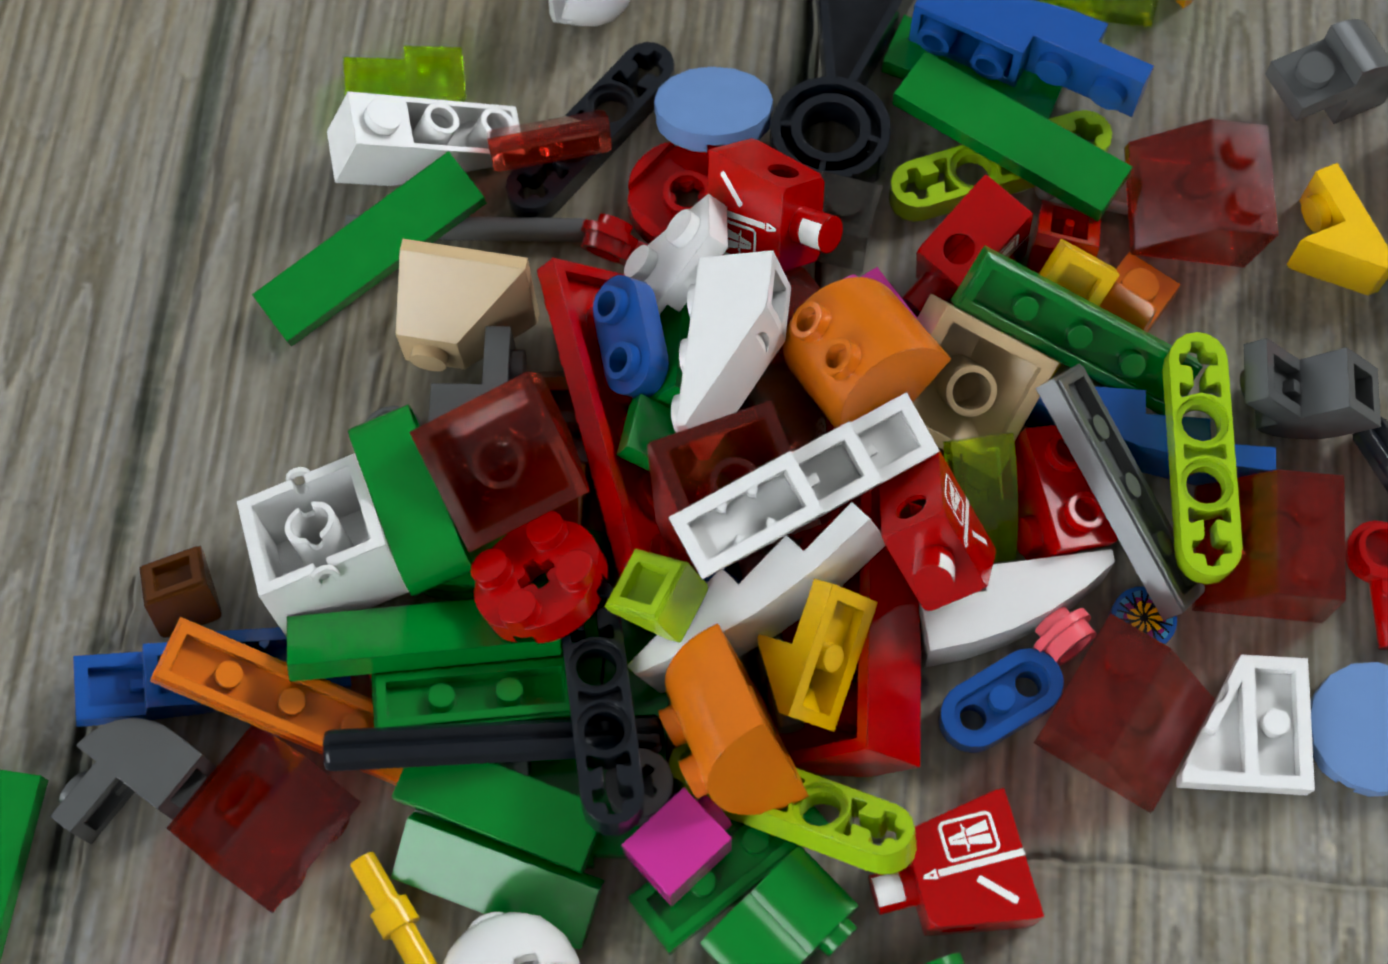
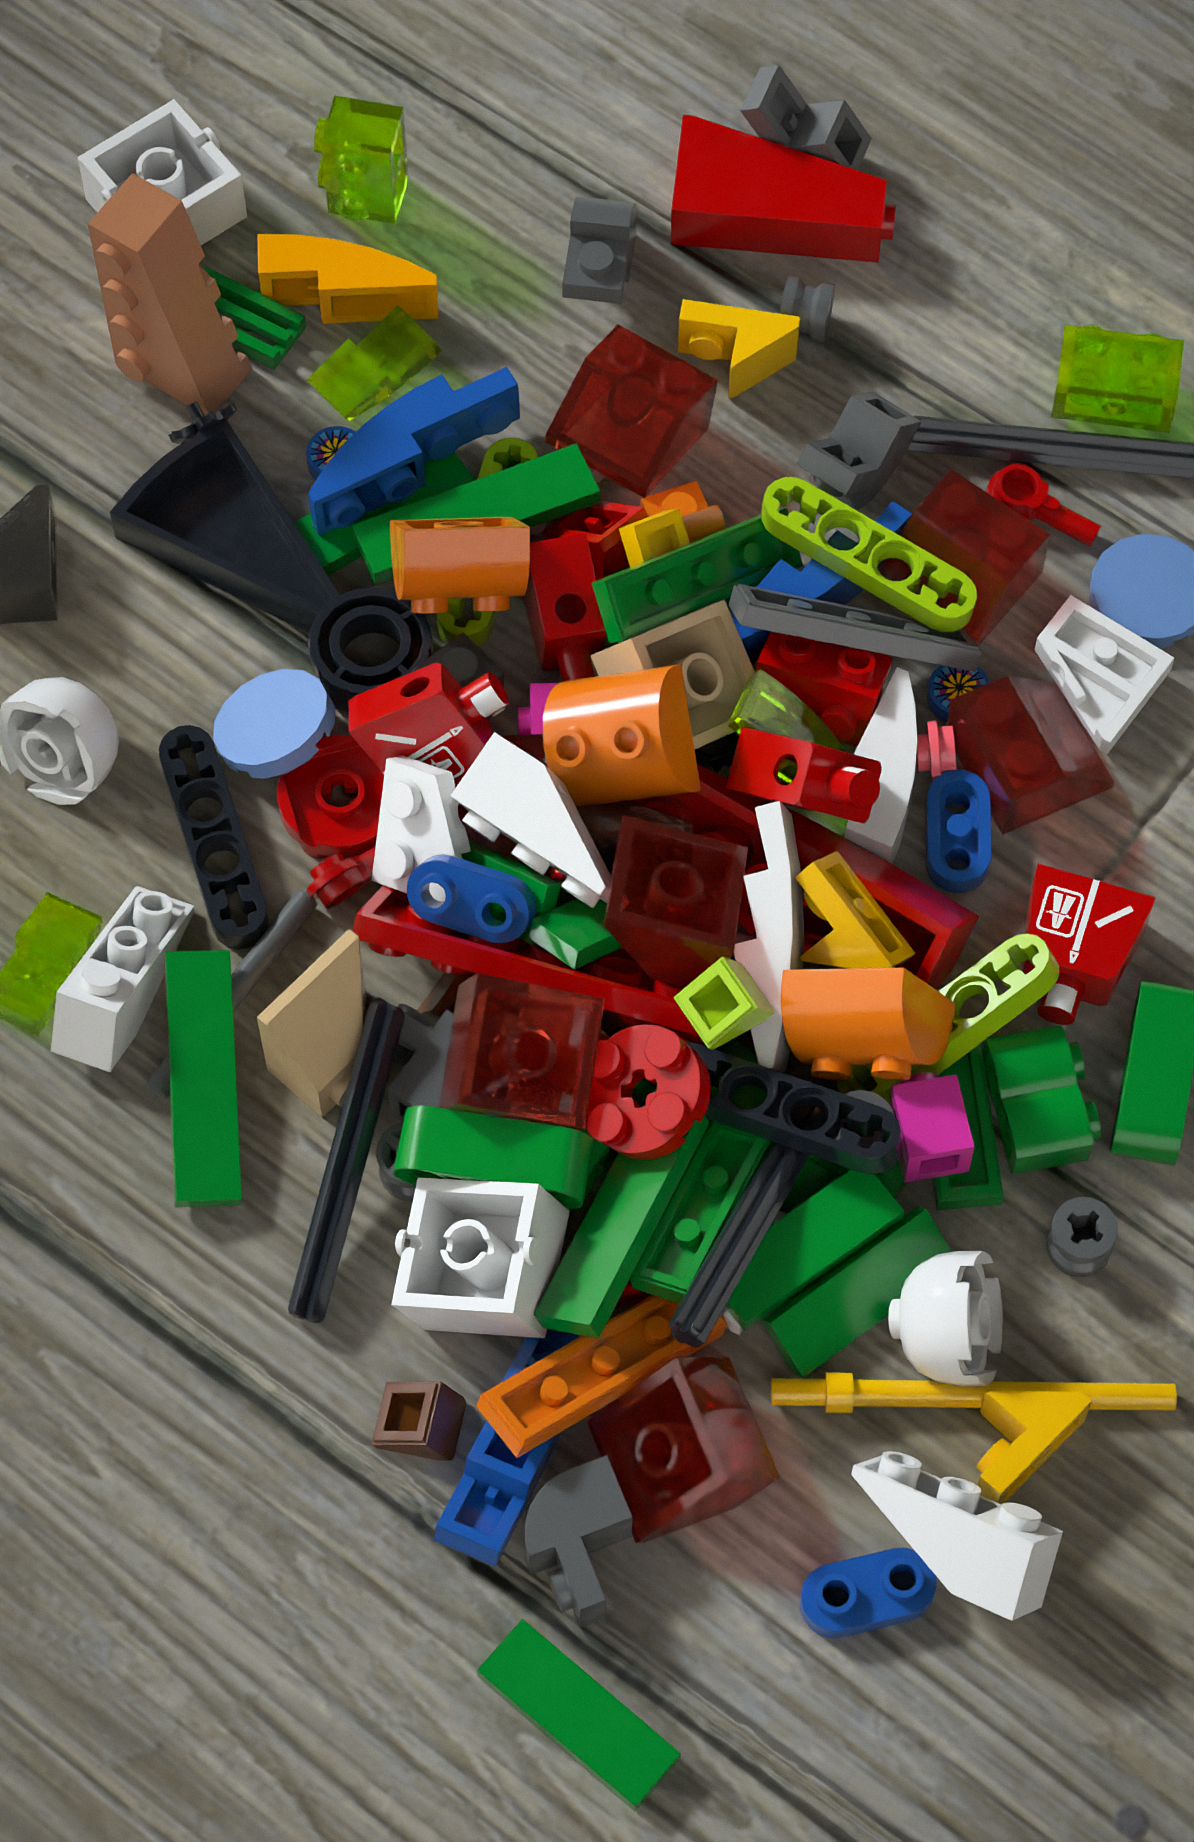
camera: 60 degrees left, 5 degrees down
(355, 393) = (346, 1162): none -> black axle
(549, 140) = (209, 865): clear red slope -> none
(803, 485) = (717, 832): white slope -> none
(940, 135) = (460, 560): none -> orange brick

